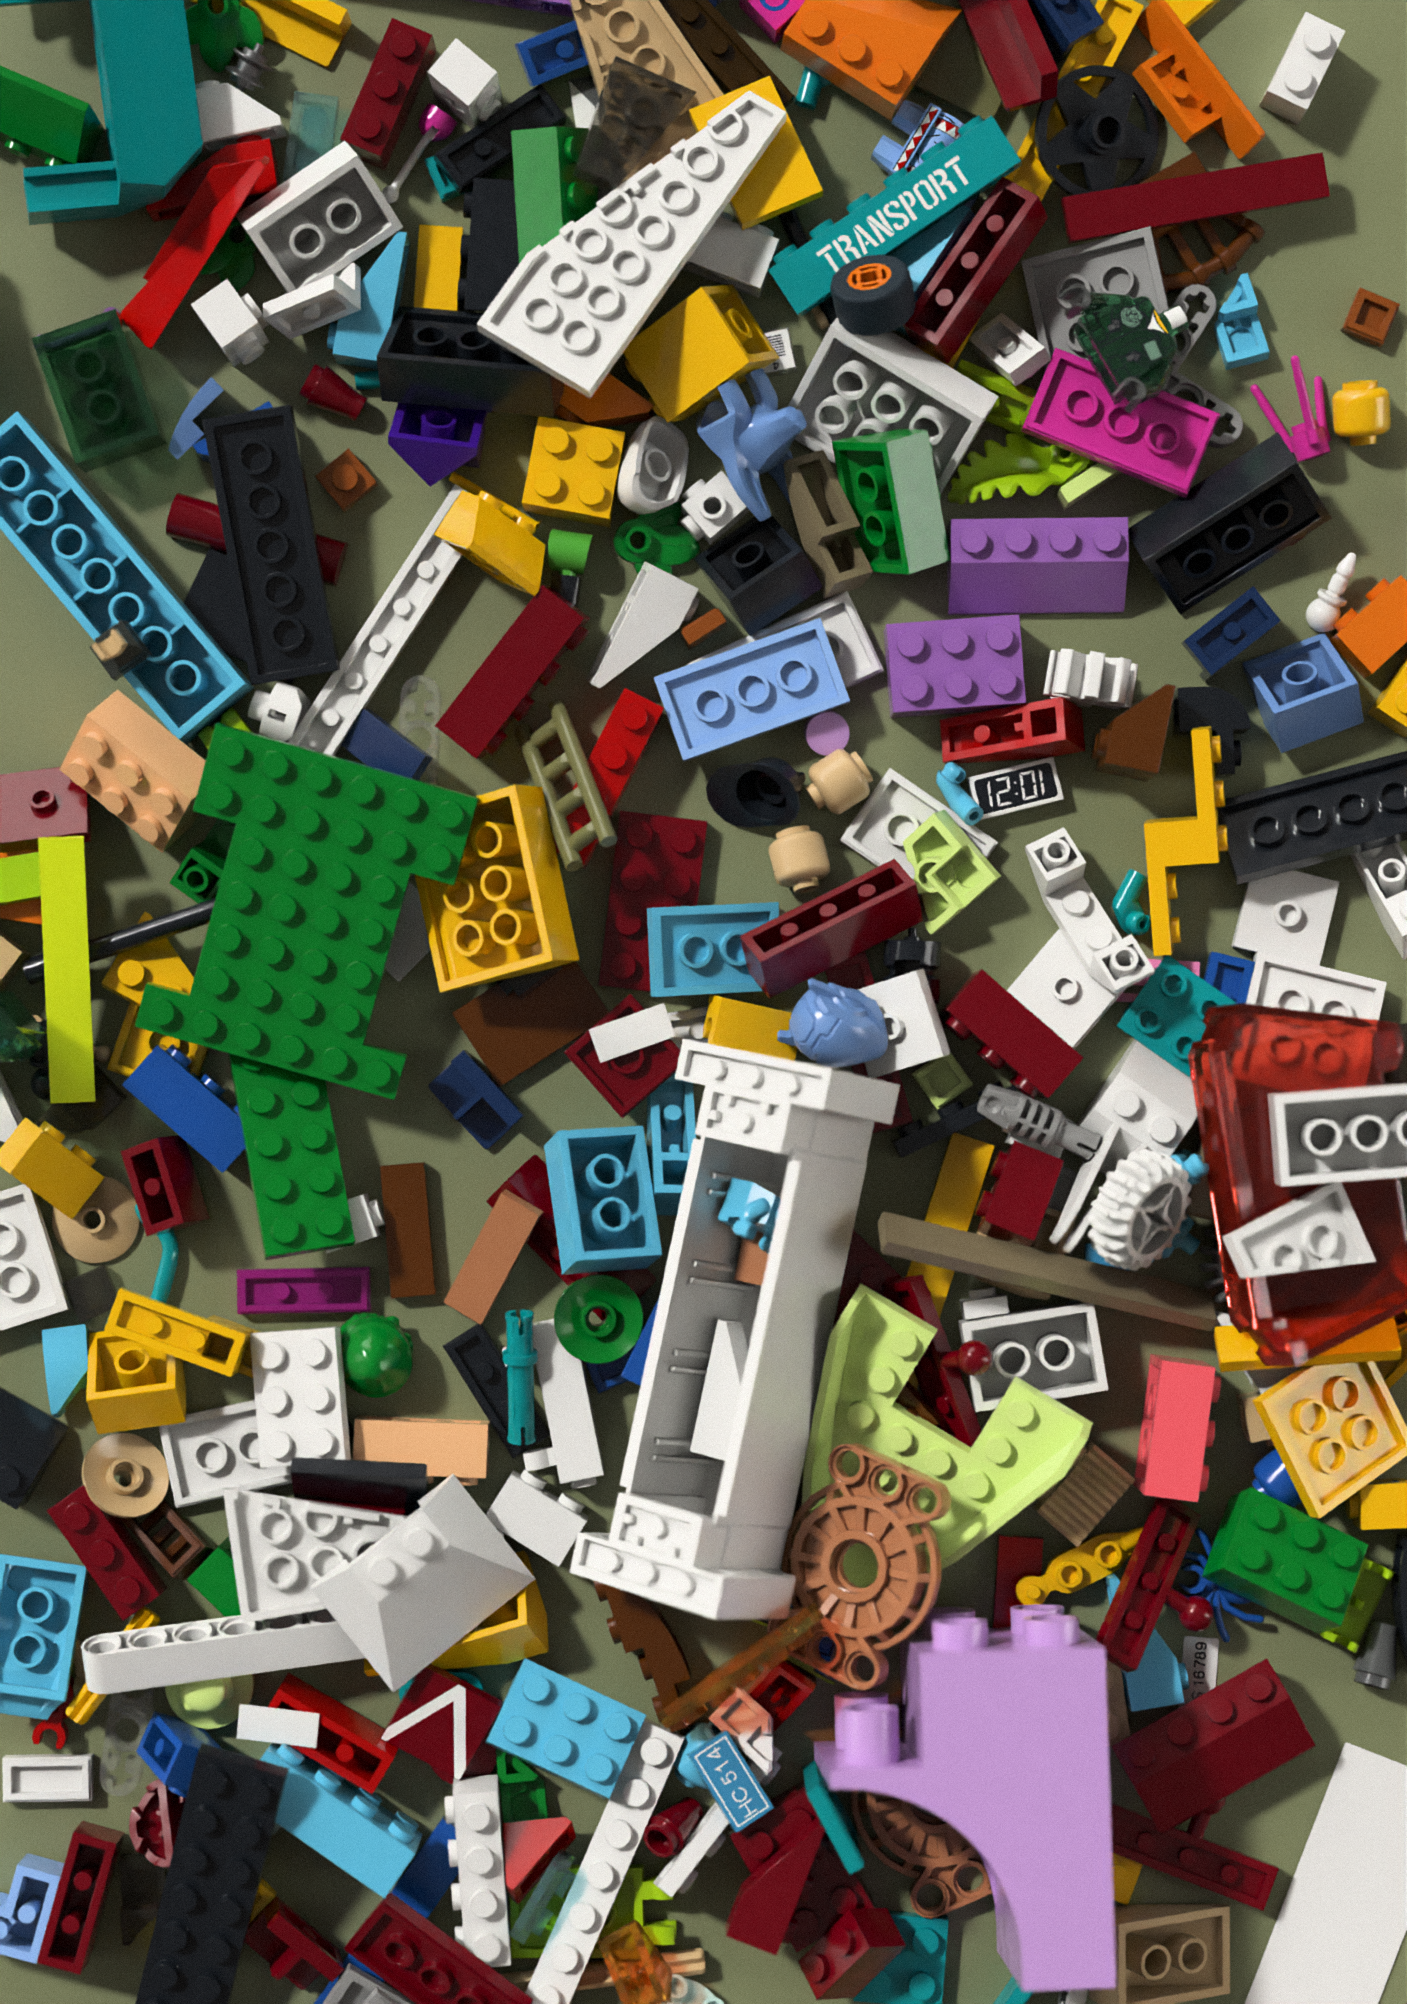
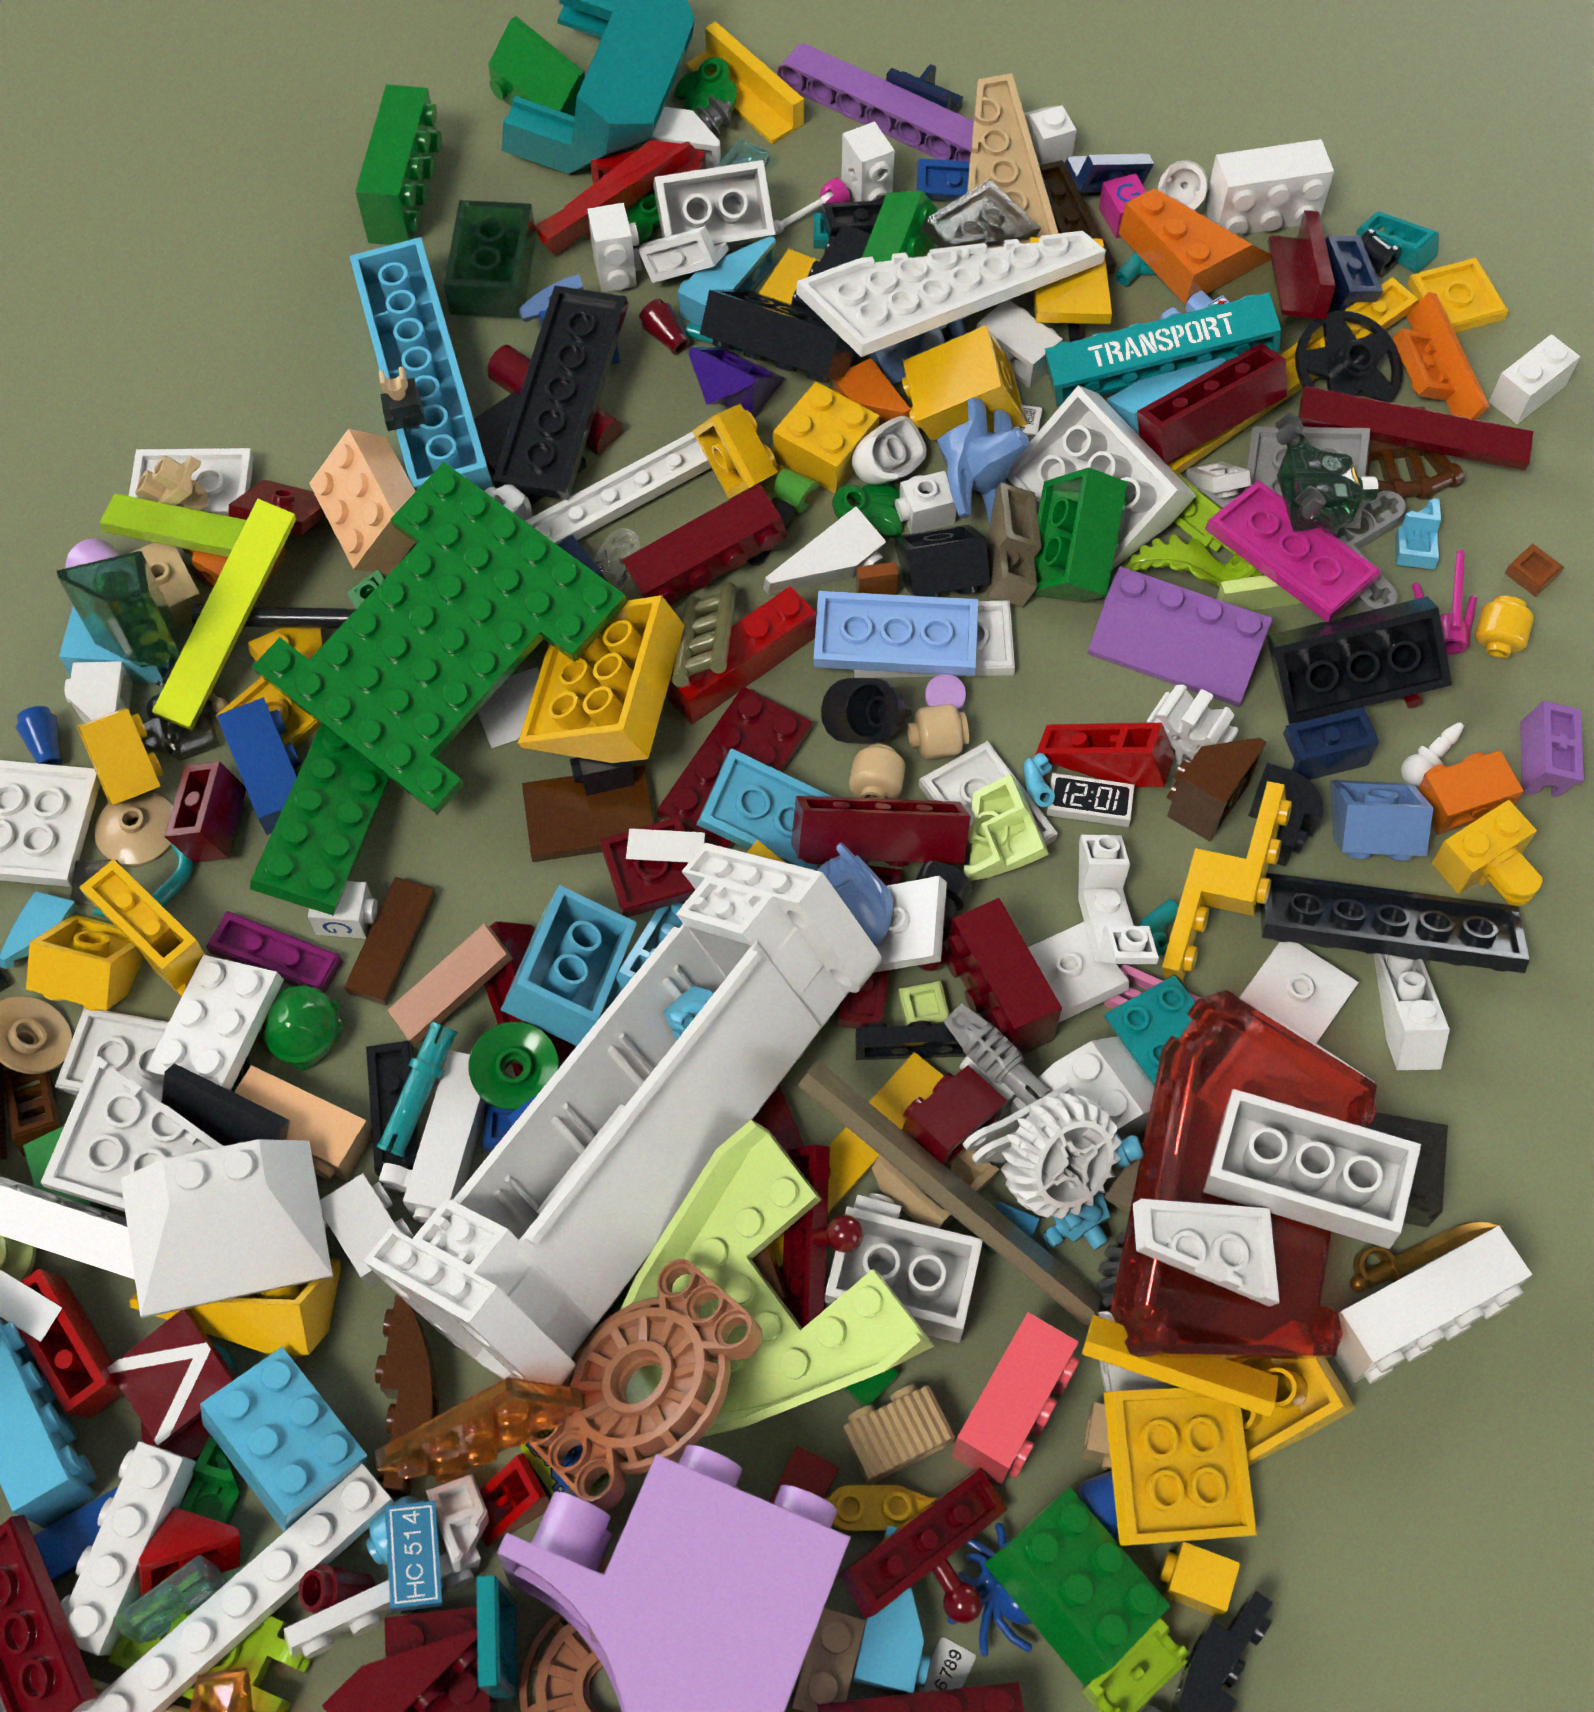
camera: 25 degrees right, 25 degrees down
(346, 480) = (645, 388): dark orange plate -> none
(389, 93) = (806, 162): dark red brick -> none
(475, 1100) = (506, 860): dark blue panel -> none
(873, 295) = (1122, 379): black wheel -> none
(954, 666) = (1074, 678): medium lavender brick -> none

